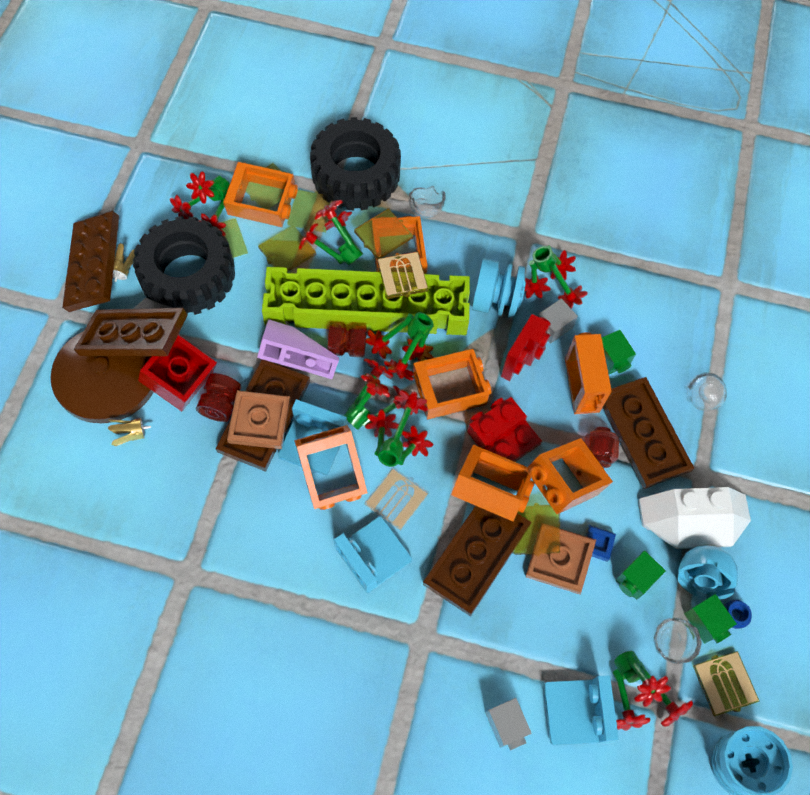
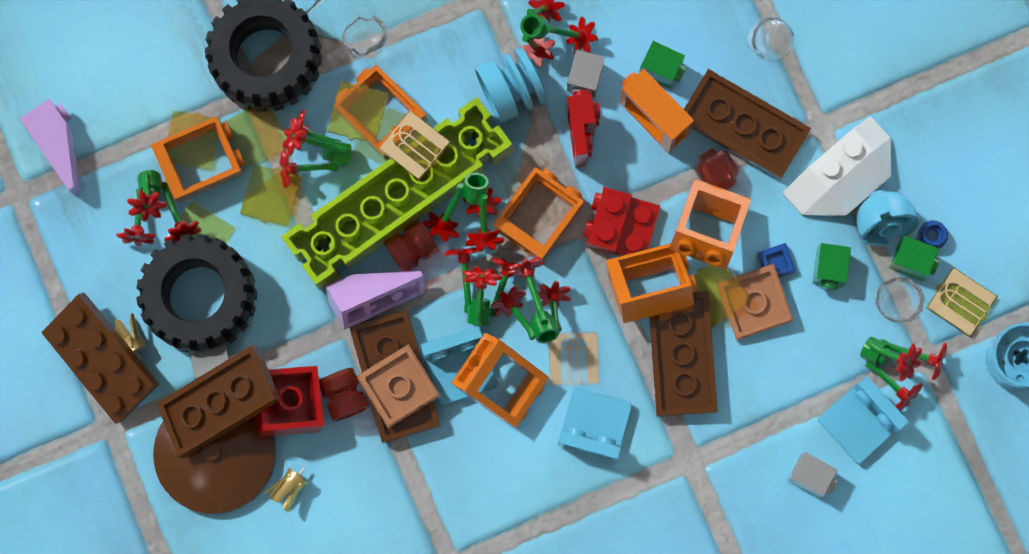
camera: 30 degrees left, 15 degrees up
(187, 128) = (55, 139): none -> lavender slope

